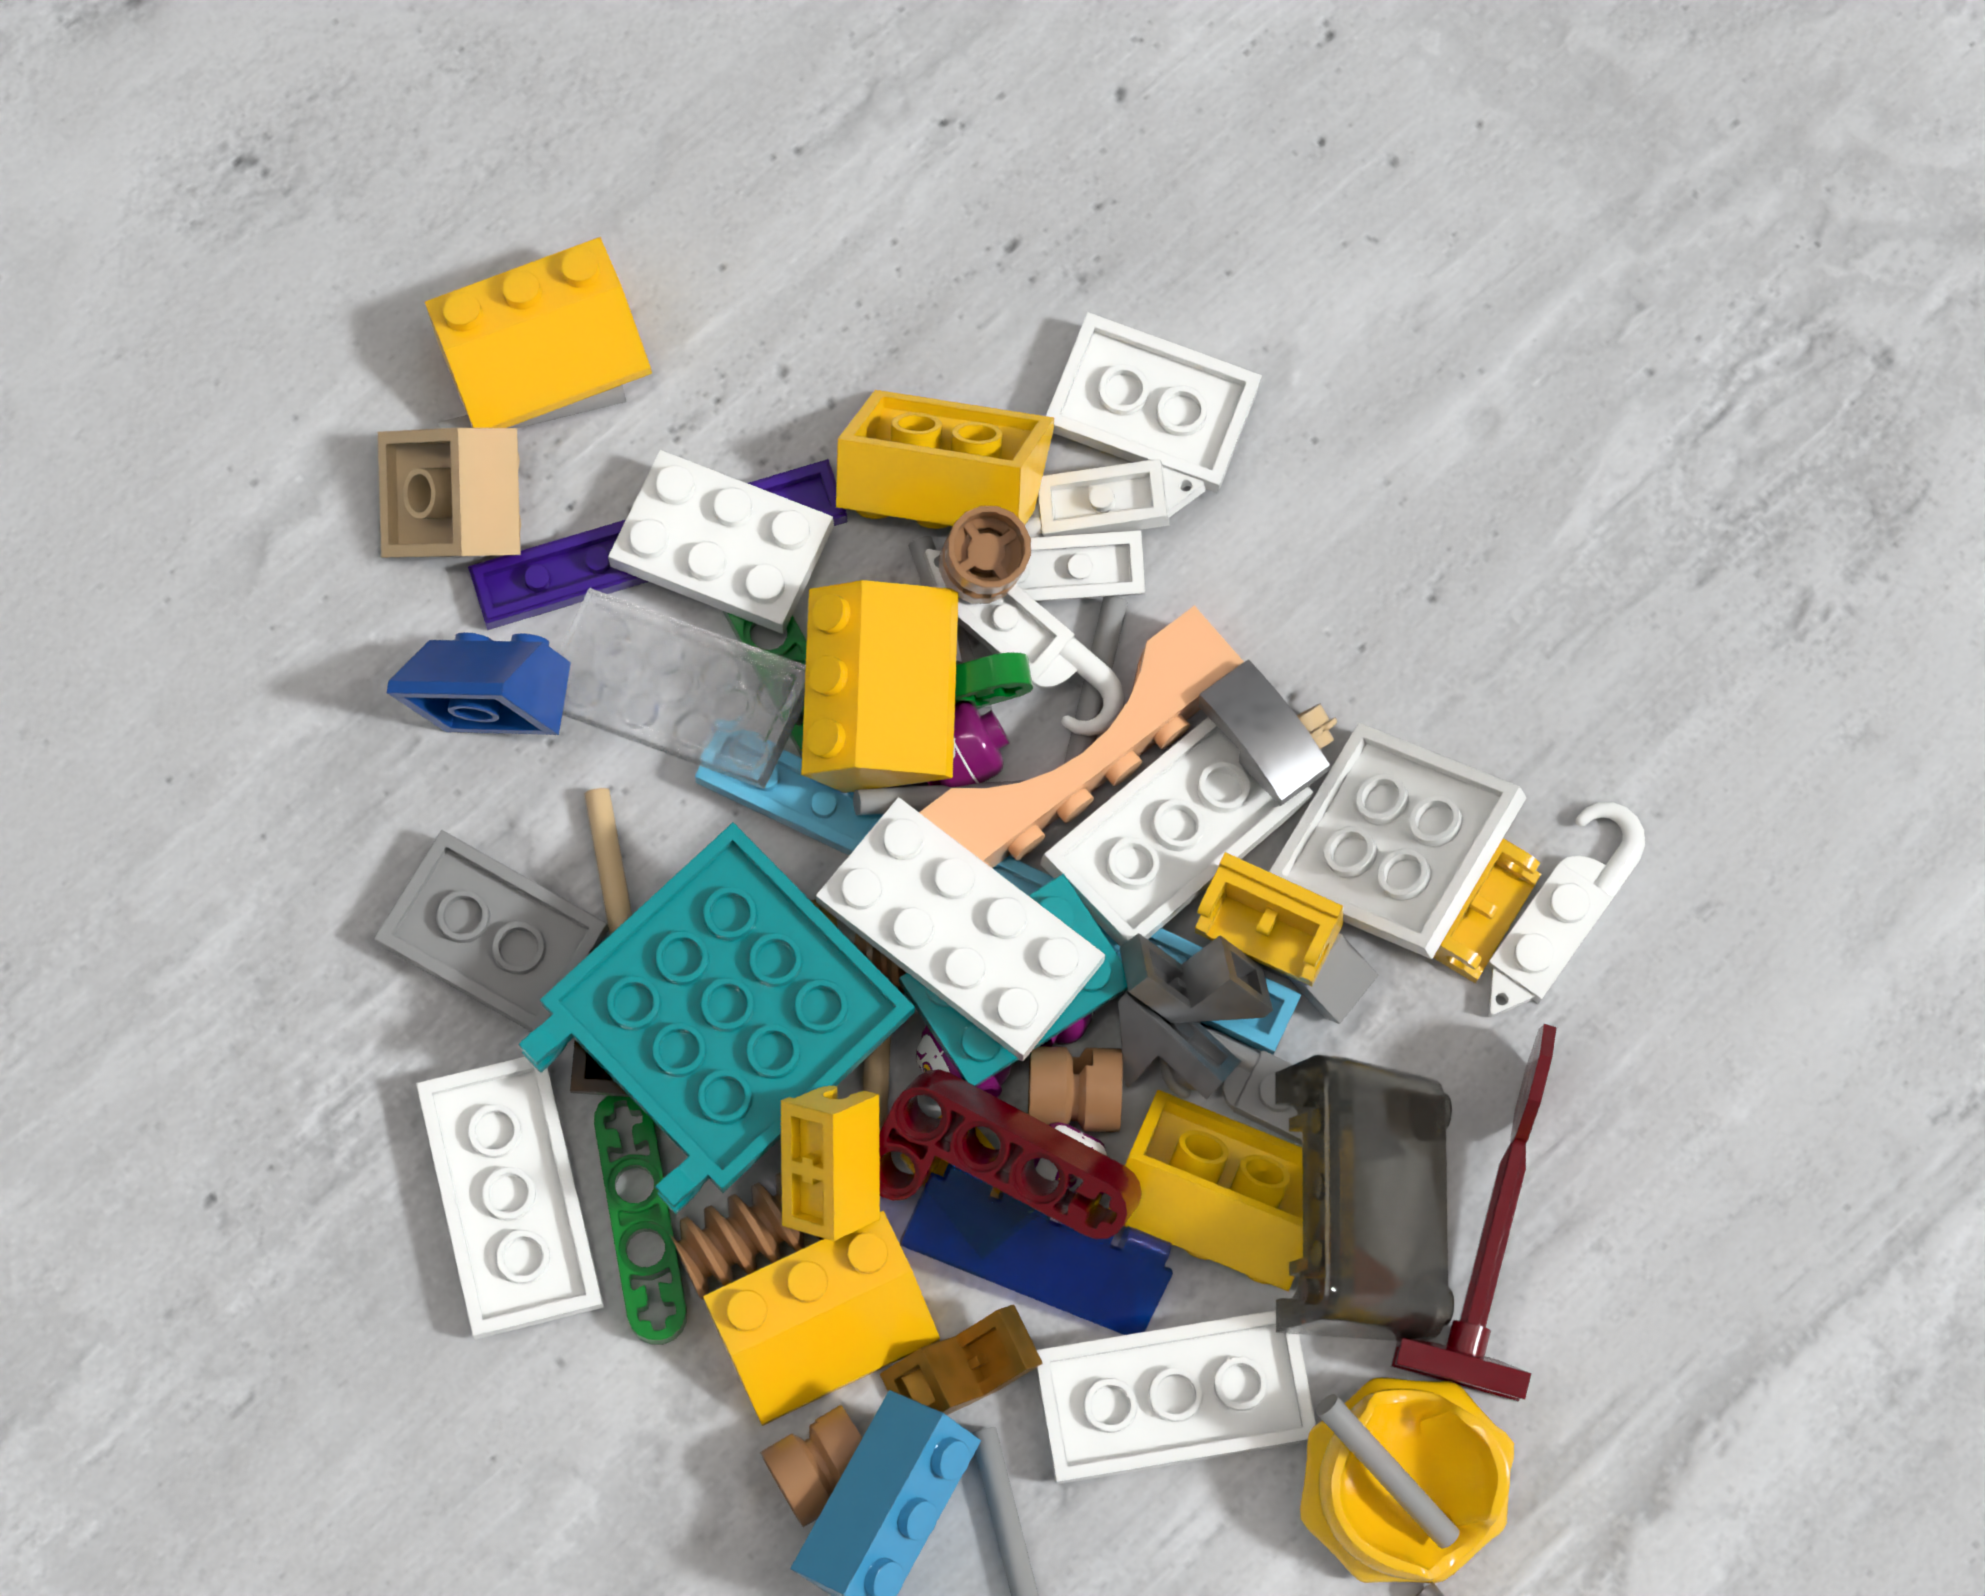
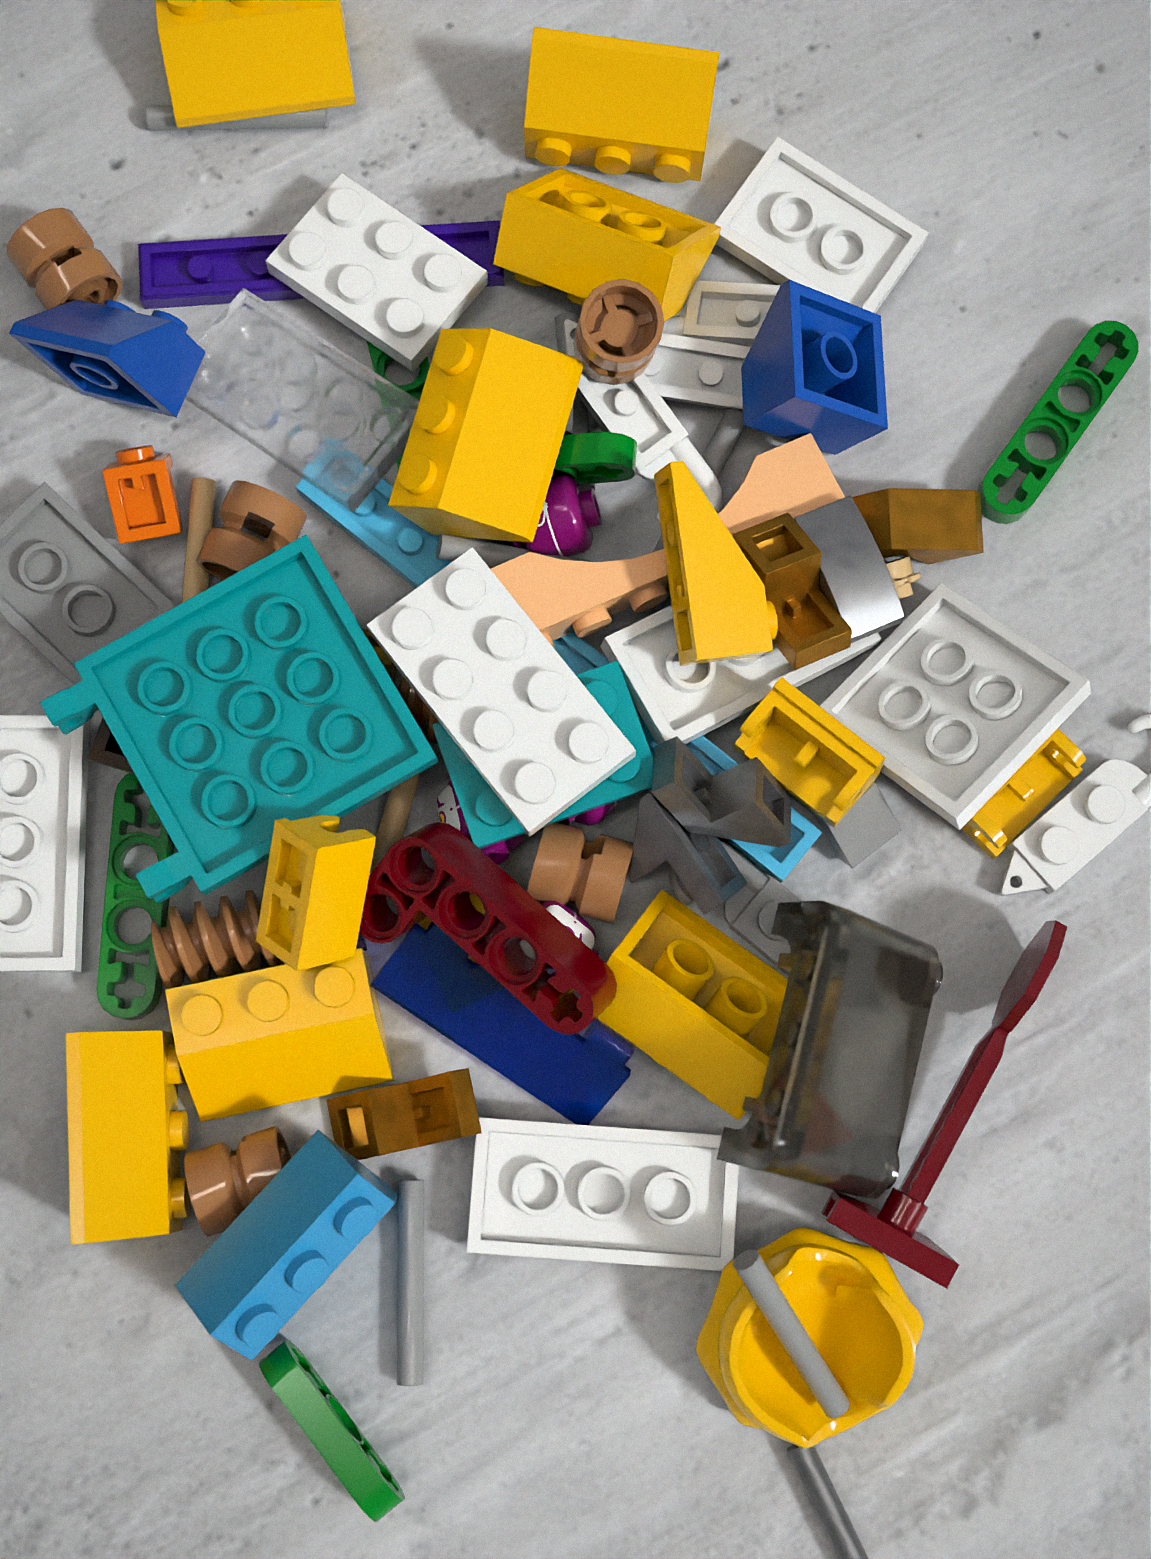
camera: 15 degrees right, 5 degrees up
(396, 603) = (61, 260): none -> medium nougat wheel
(449, 492) = (136, 166): tan slope -> none
(542, 819) = (142, 495): none -> orange bracket
(652, 857) = (258, 510): none -> medium nougat wheel
(702, 1445) = (125, 1135): none -> yellow slope
(924, 321) = (618, 104): none -> yellow slope
(1135, 777) = (712, 586): none -> yellow slope
(1185, 543) = (816, 371): none -> blue slope
(1205, 762) = (790, 573): none -> pearl gold slope
(1326, 667) = (924, 522): none -> pearl gold slope
(1437, 535) = (1057, 422): none -> green beam

